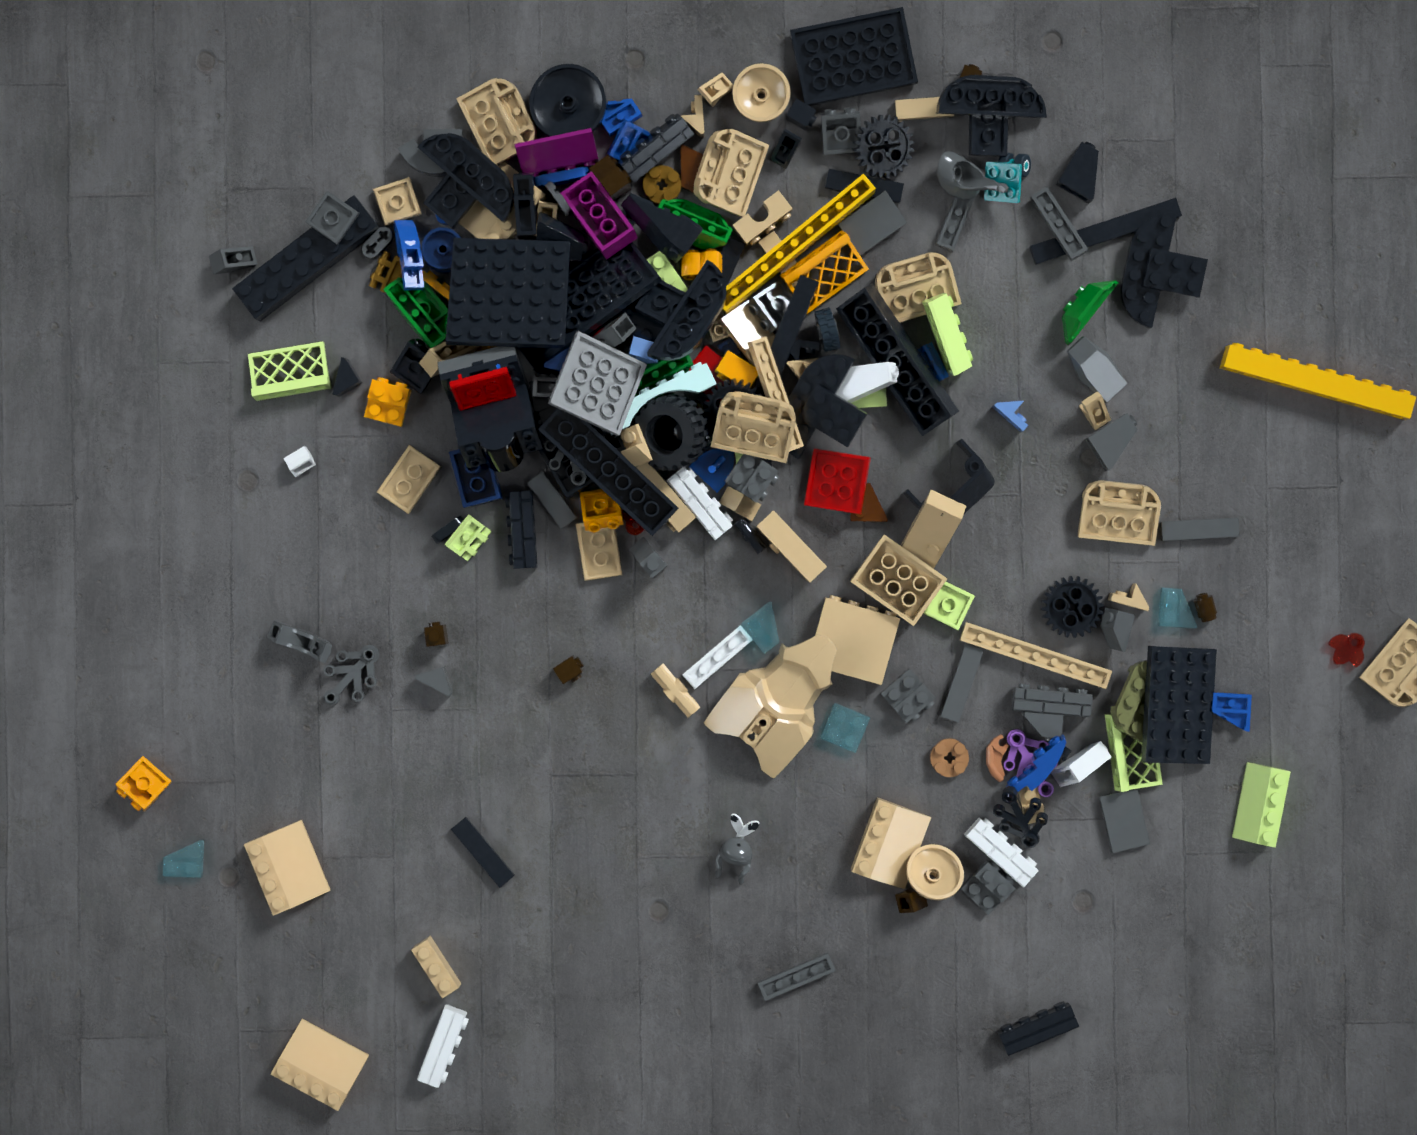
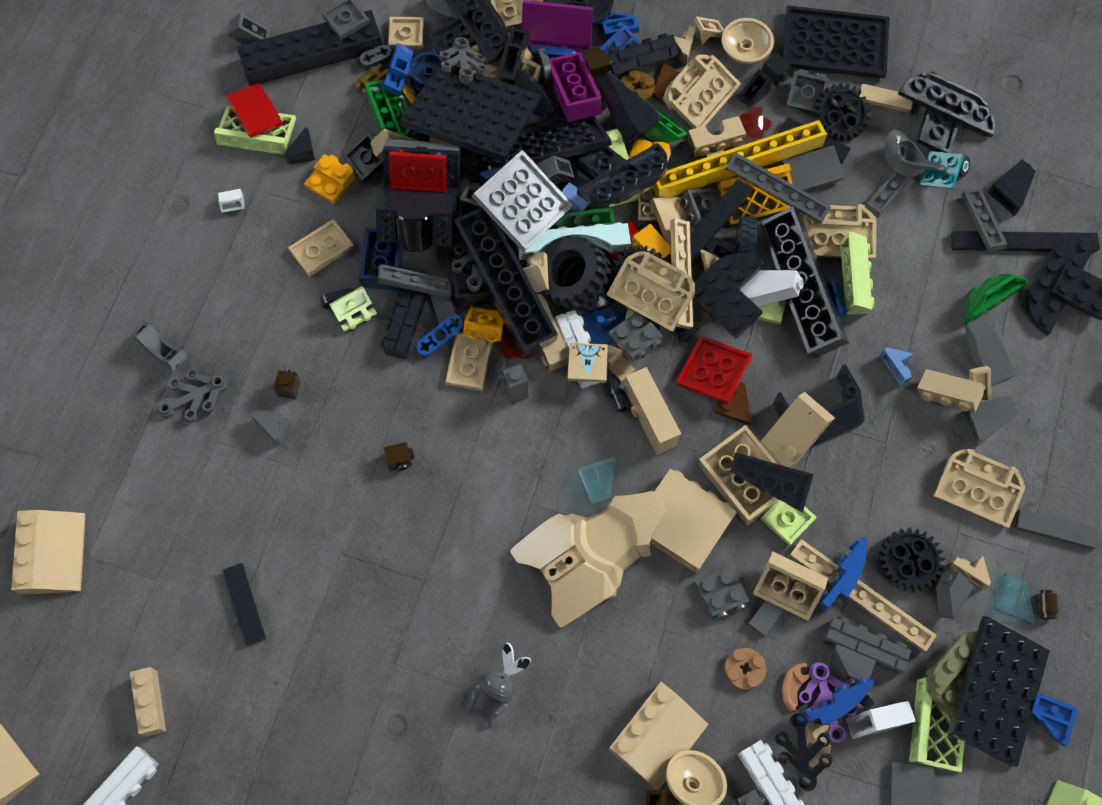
camera: 10 degrees right, 20 degrees down
(281, 356) = (254, 110): none -> red slope
(476, 230) = (462, 47): none -> dark grey plant
(518, 492) = (414, 281): none -> dark grey tile
(559, 549) = (448, 323): none -> blue beam
(675, 690) = (493, 510): tan piece -> none
(714, 519) = (587, 362): none -> tan tile
(717, 657) = (545, 494): white tile -> none
(799, 185) = (756, 122): none -> clear red plate
(843, 268) = (778, 187): none -> dark grey plate
(845, 727) = (648, 603): clear light blue plate -> none
(925, 581) = (777, 480): none -> black wing
(969, 671) = (790, 586): none -> tan slope
(1019, 637) = (849, 574): none -> blue slope
(1068, 429) = (950, 390): none -> tan brick

